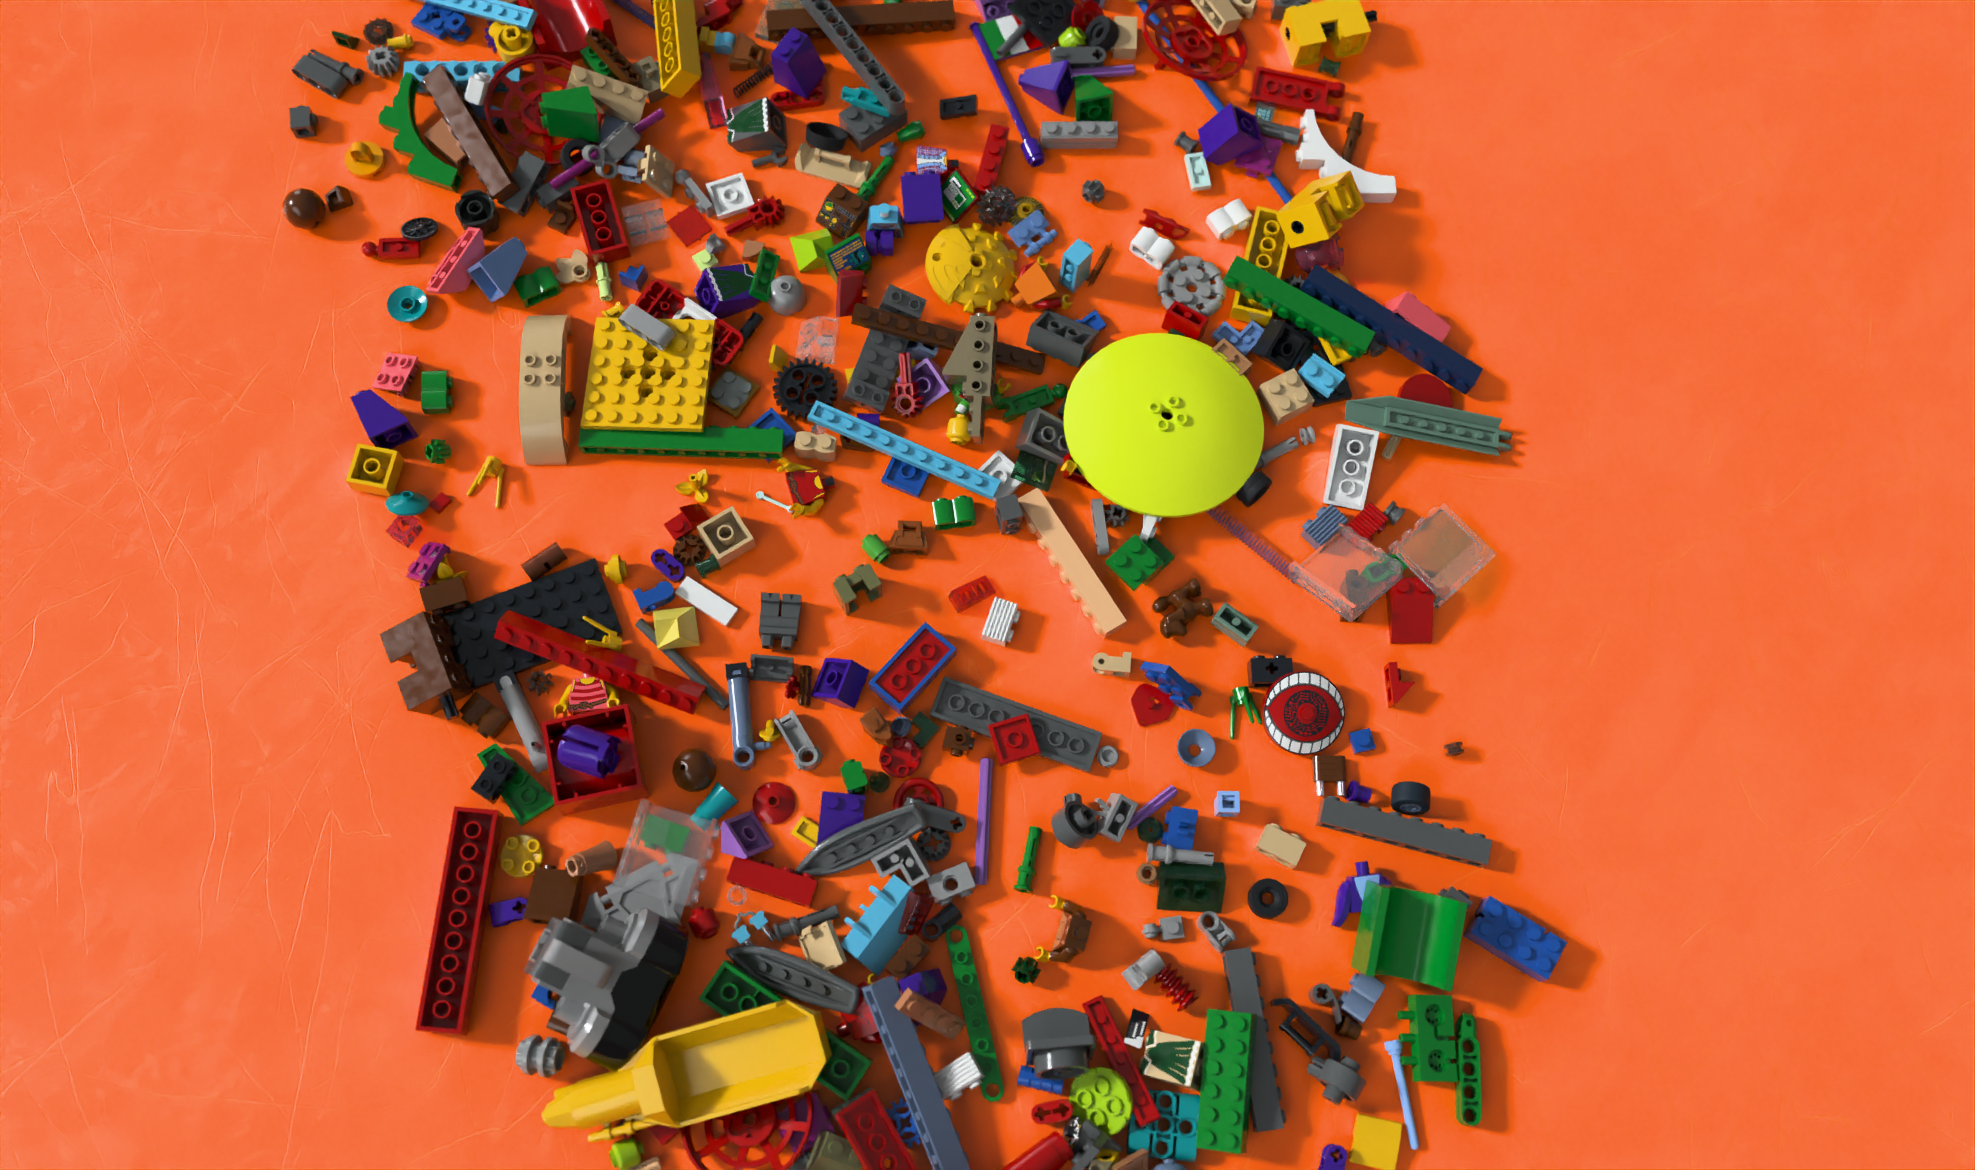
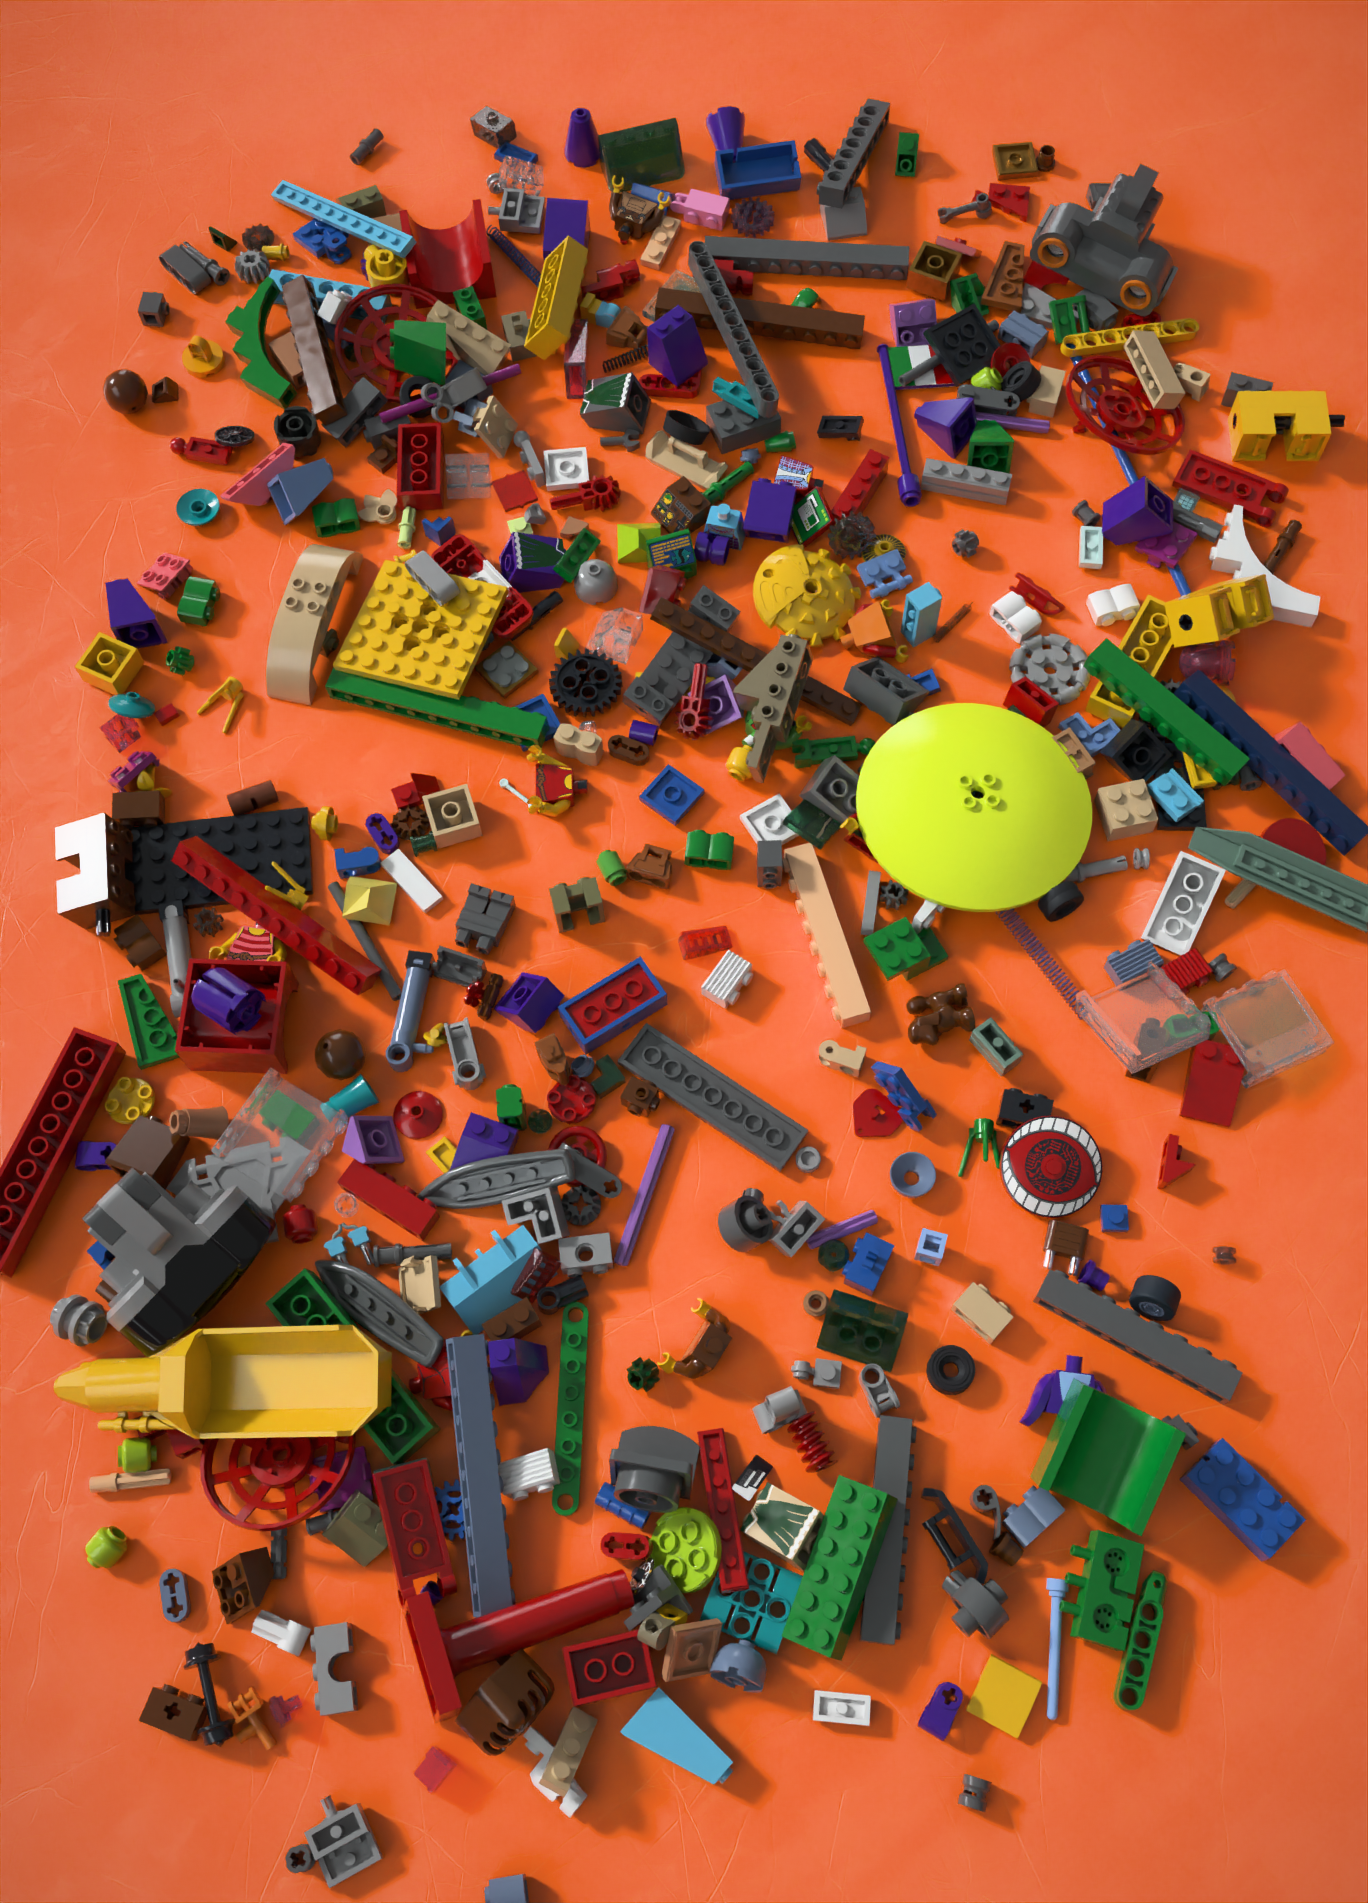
camera: 25 degrees right, 5 degrees down
(495, 778) = (126, 1009): black brick -> none
(598, 42) = (473, 285): reddish brown beam -> none
(696, 482) = (437, 756): yellow plant -> none
(904, 450) = (674, 769): medium azure plate -> none
(930, 1014) = (515, 1391): nougat plate -> none
(1014, 739) = (704, 1112): red tile -> none
(1027, 869) = (680, 1264): green pin -> none
(1169, 854) = (845, 1286): light grey pin -> none
(1329, 66) = (1268, 466): clear green bush -> none

